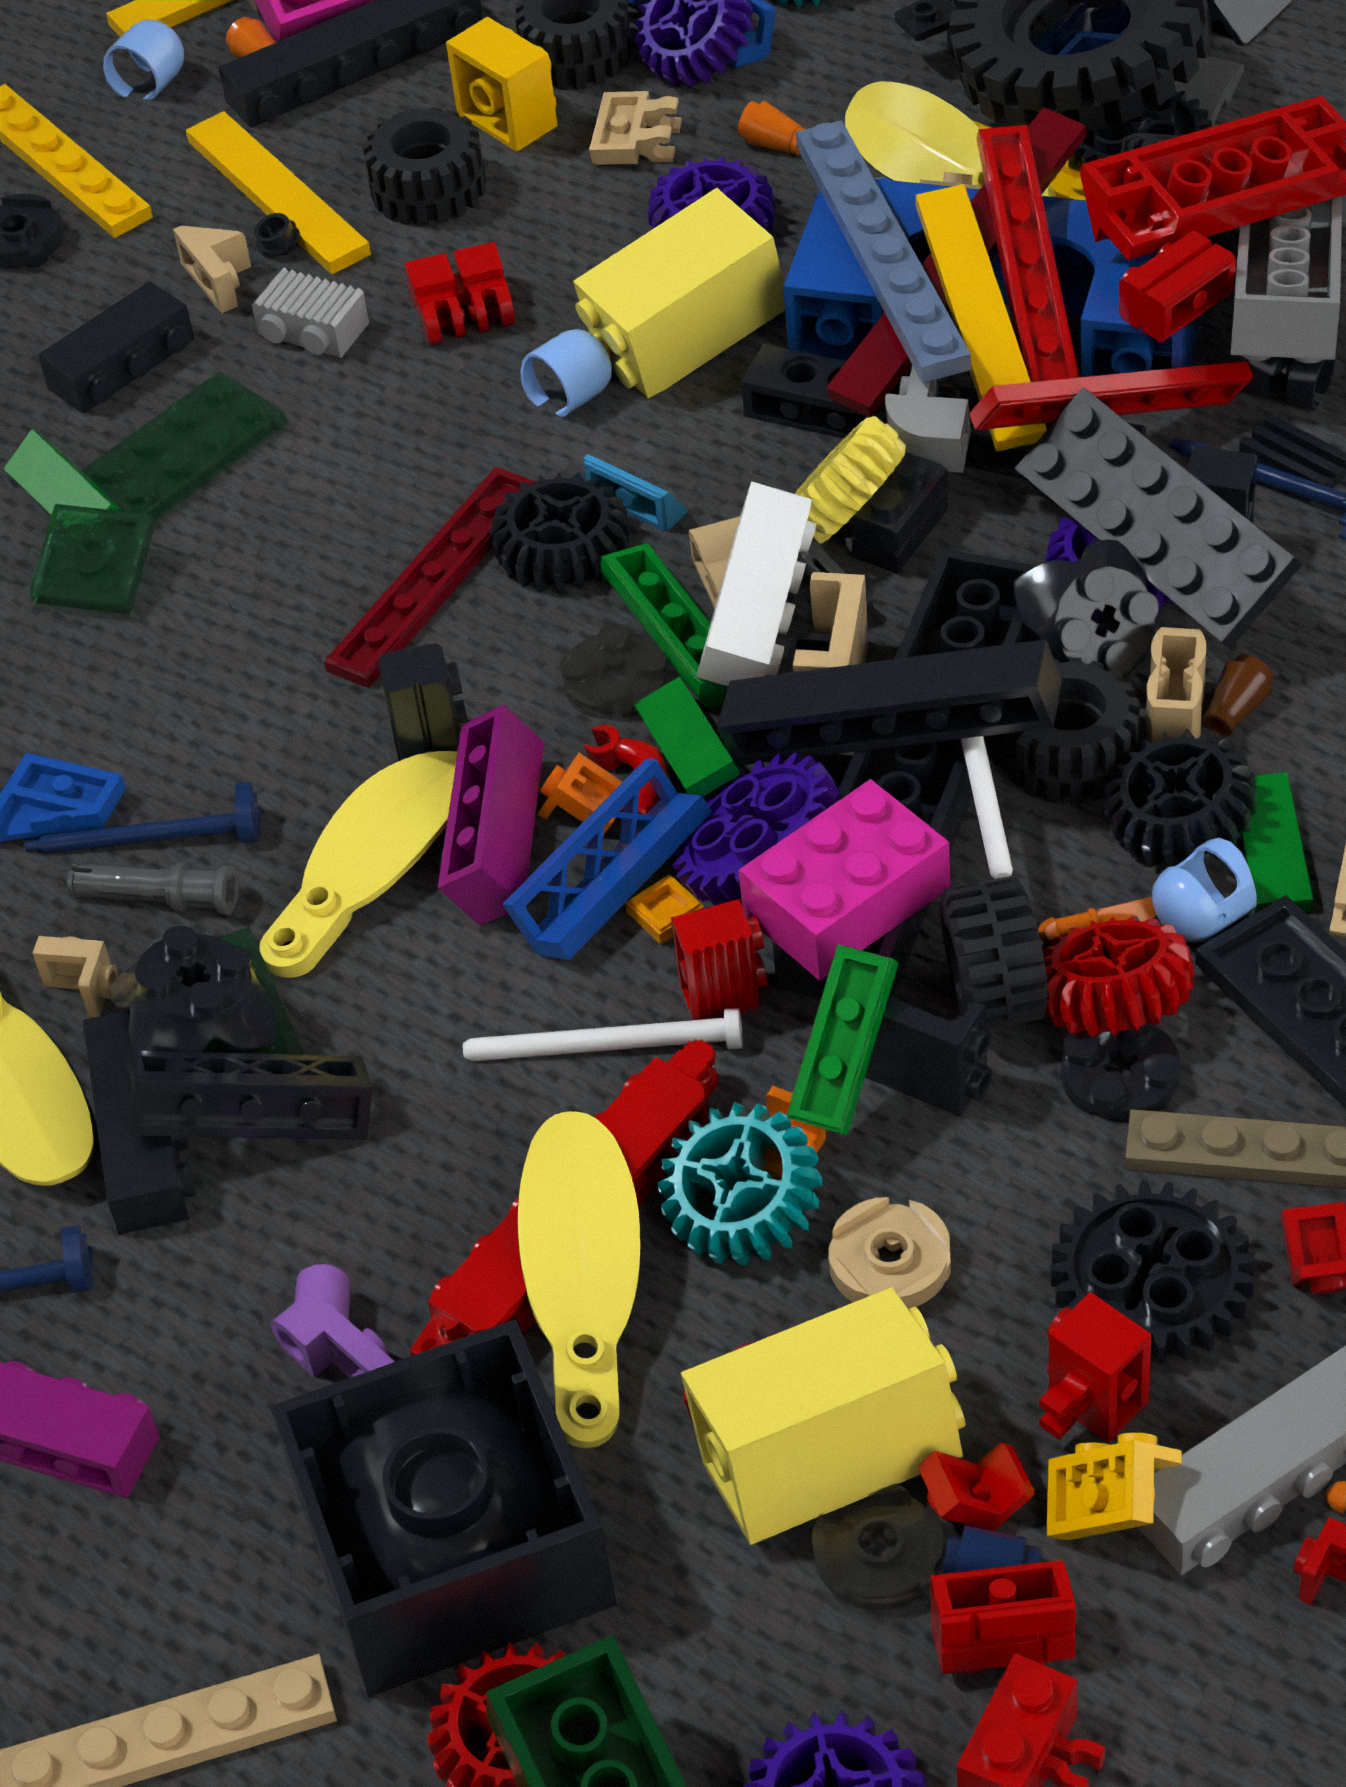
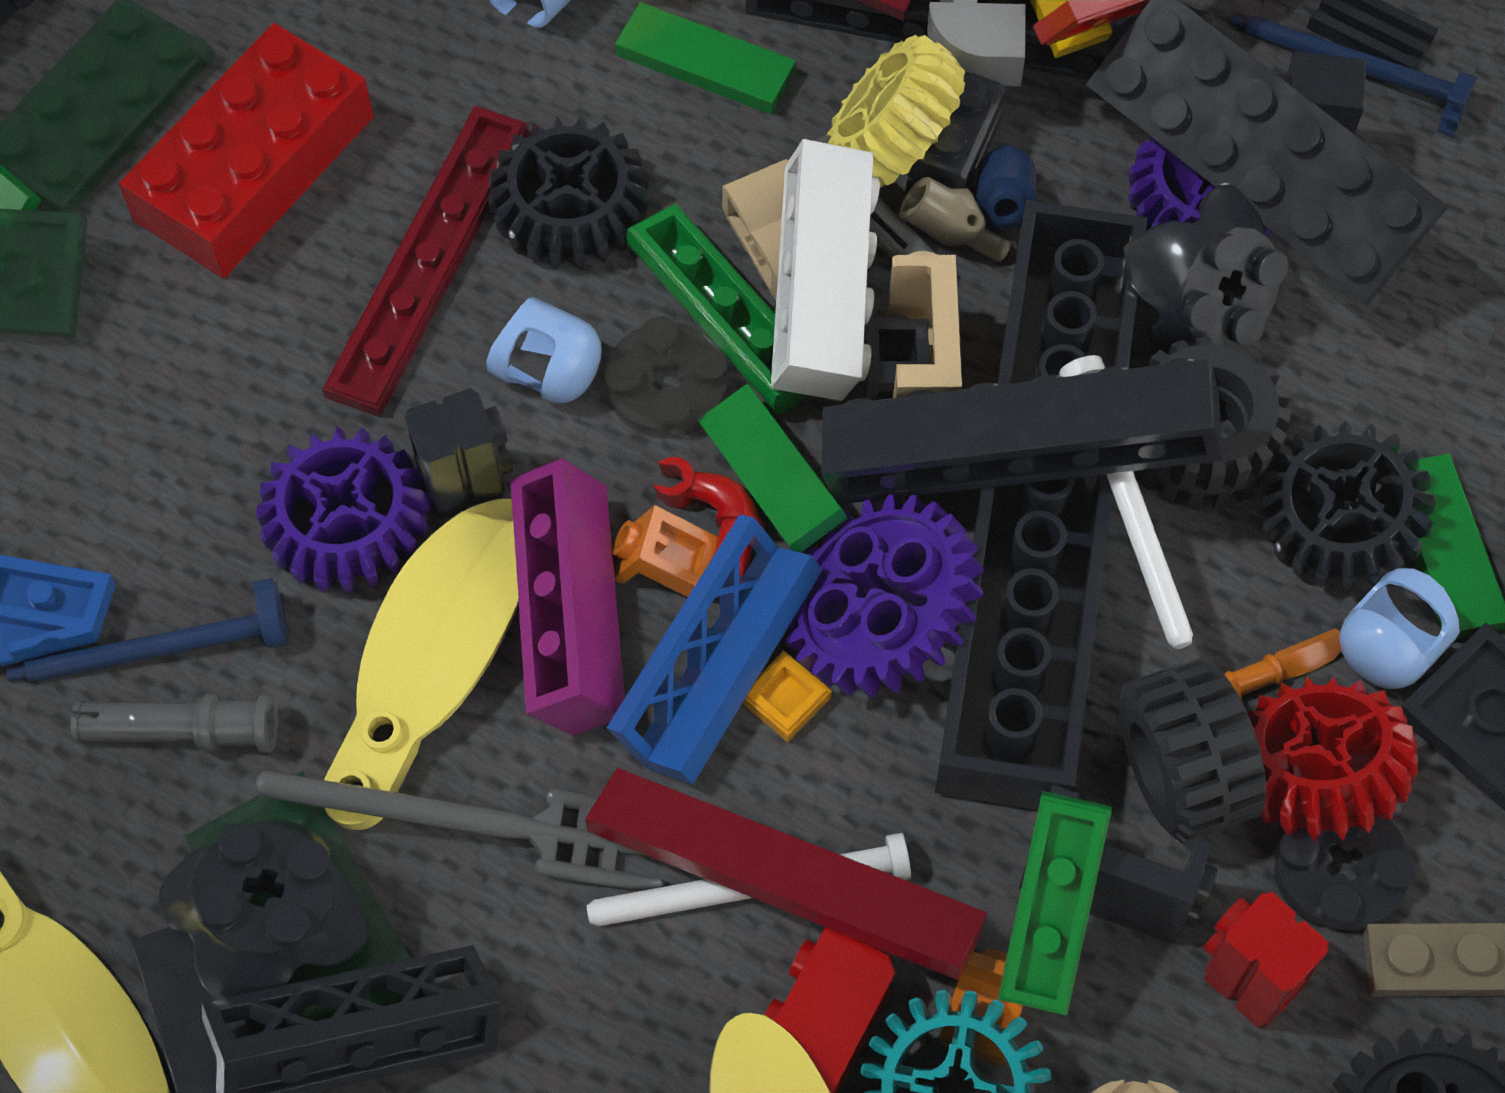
camera: 15 degrees left, 15 degrees up
(77, 965) = (104, 845): tan bracket -> none
(298, 484) = (247, 150): none -> red brick
(321, 733) = (335, 478): none -> dark purple gear
(437, 985) = (542, 830): none -> dark grey piece
(530, 642) = (551, 332): none -> light blue helmet
(631, 1017) = (788, 873): none -> dark red tile
(639, 497) = (652, 139): dark azure slope -> none
(700, 444) = (705, 58): none -> green tile
(719, 959) = (874, 781): red brick -> none
(845, 877) = (1017, 681): dark pink brick -> none
(883, 567) = (951, 218): none -> dark tan piece
(929, 540) = (1004, 184): none -> dark blue brick
(1023, 1112) = (1262, 957): none -> red brick
(1175, 683) = (1315, 360): tan brick -> none
(1238, 692) = (1375, 352): reddish brown cone -> none

